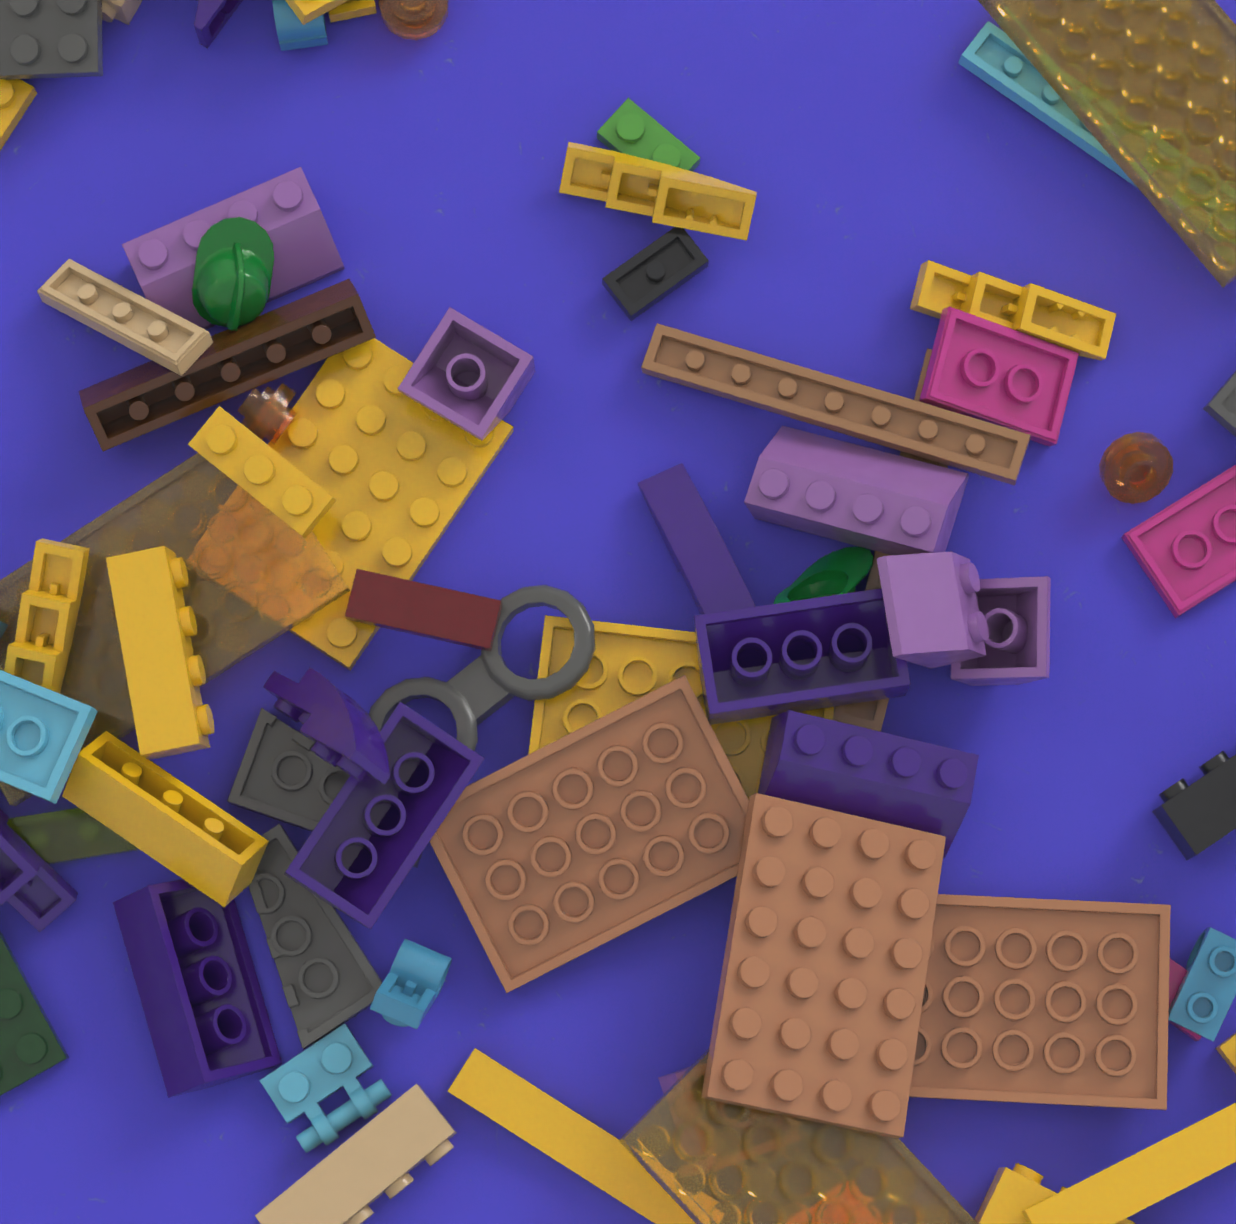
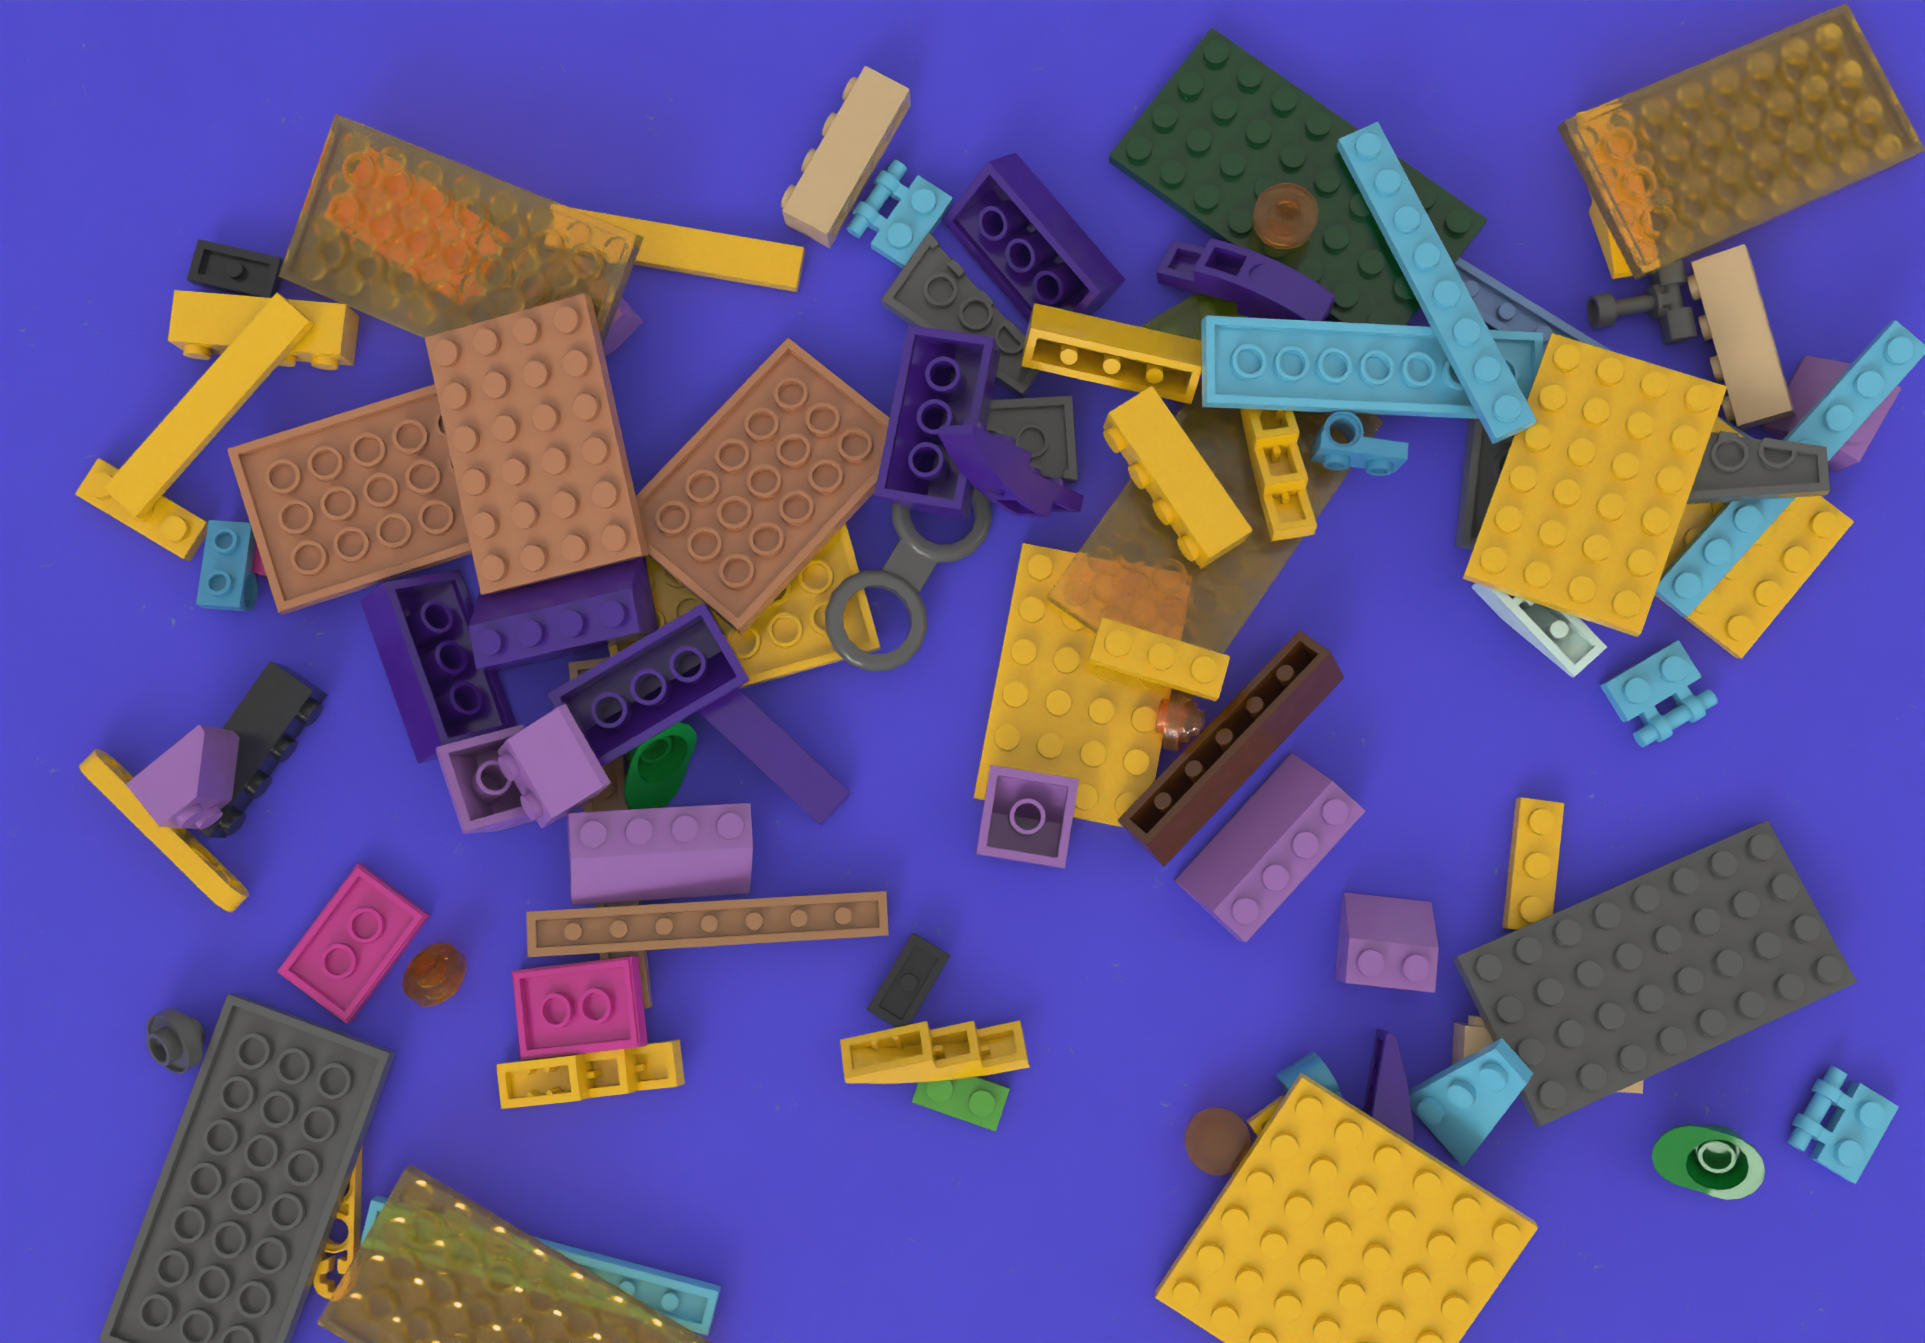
camera: 160 degrees right, 5 degrees up
(125, 317) = (1333, 751): tan tile -> none
(160, 118) = (1387, 943): none -> medium lavender slope
(233, 272) = (1260, 826): green piece -> none
(411, 985) = (862, 304): dark azure plate -> none
(423, 610) = (979, 607): dark red tile -> none
(1024, 788) = (431, 661): none -> dark purple slope

